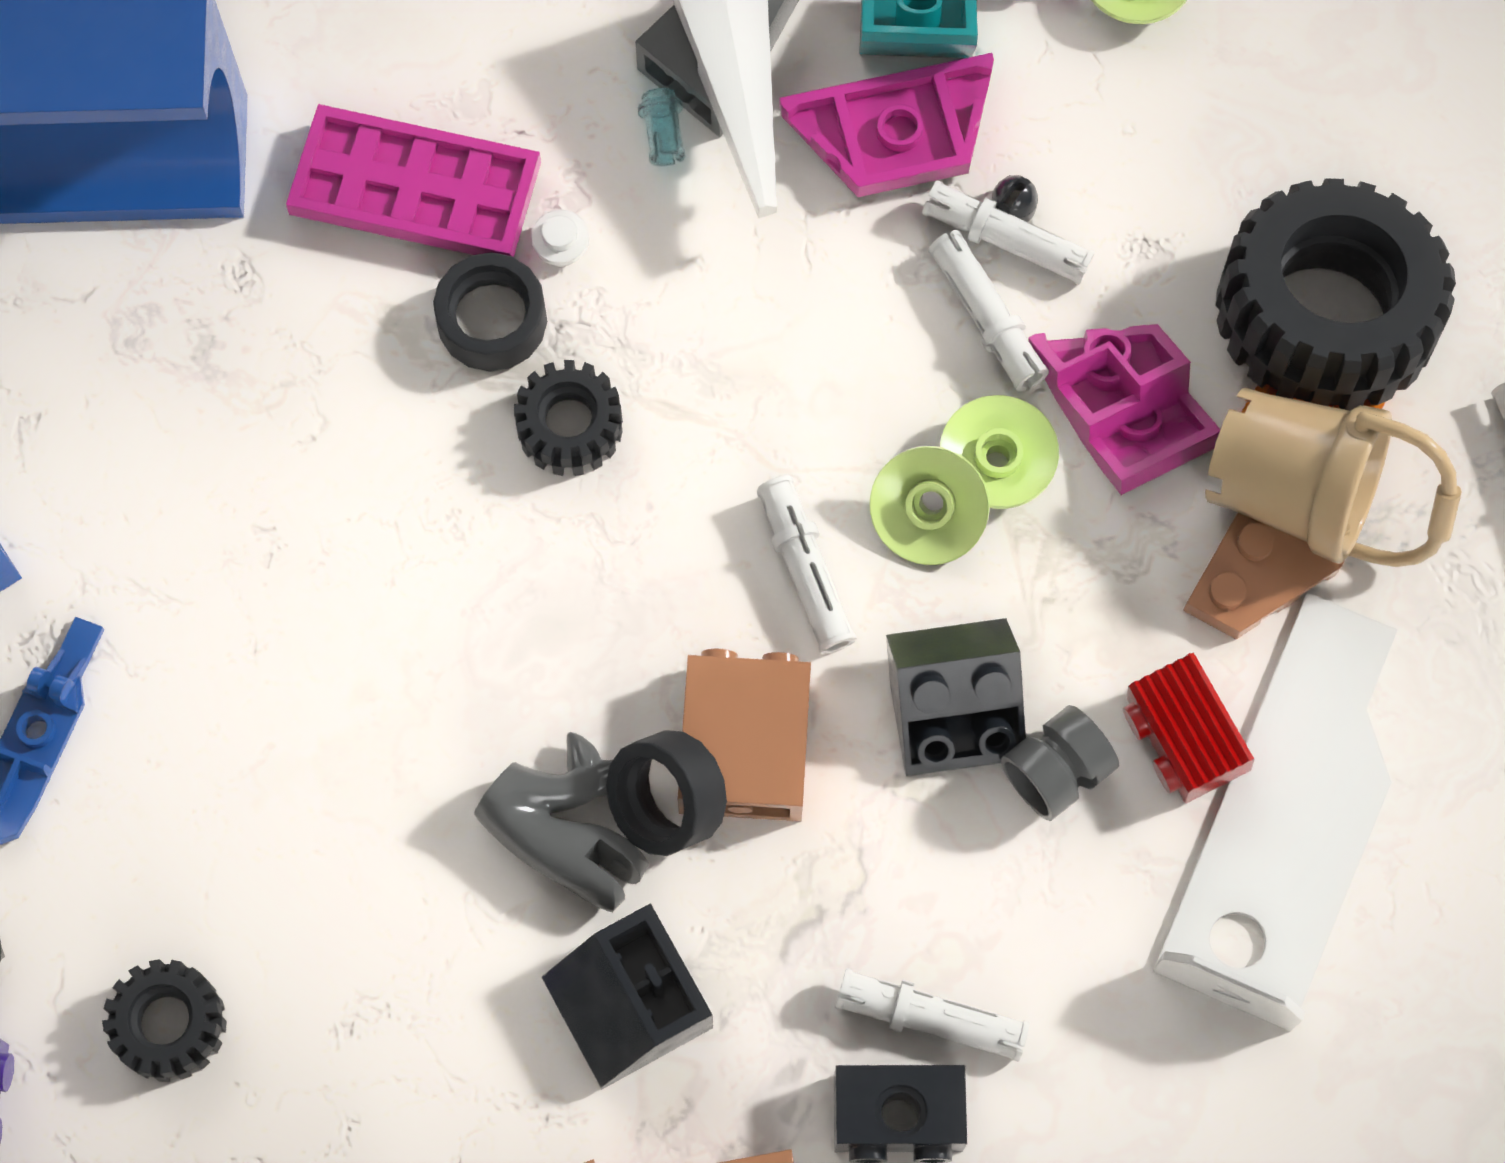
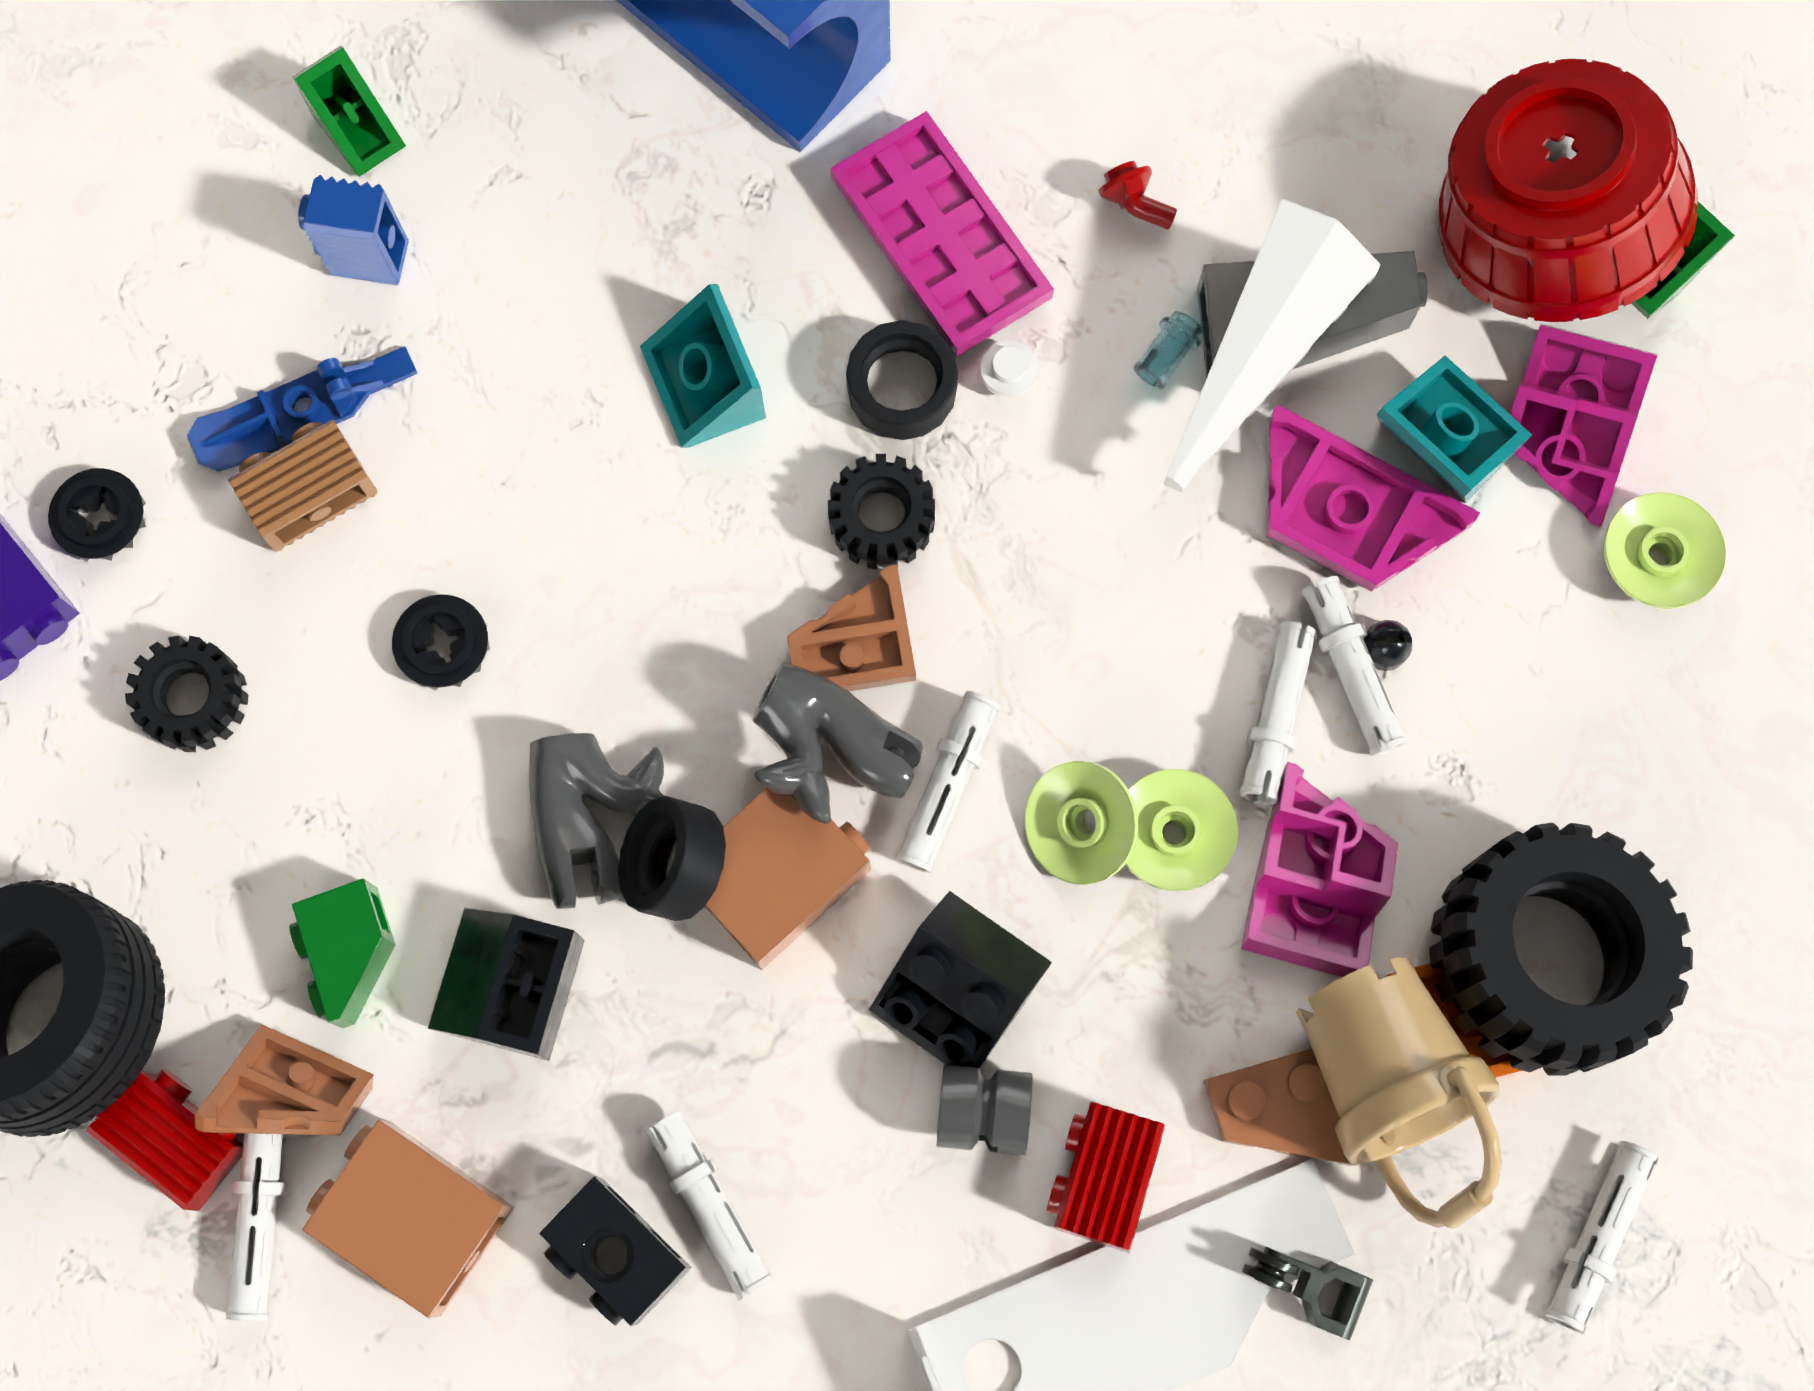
camera: 45 degrees right, 5 degrees up
(100, 783) = (302, 484): none -> medium nougat brick
(317, 779) = (415, 633): none -> black gear
(335, 429) = (703, 371): none -> teal slope
(476, 1082) = (346, 945): none -> green slope
(521, 37) = (1127, 187): none -> red plate
(642, 526) = (860, 638): none -> nougat wing
(664, 601) = (861, 740): none -> dark grey piece
(1390, 676) = (1274, 1265): none -> pearl dark grey piece

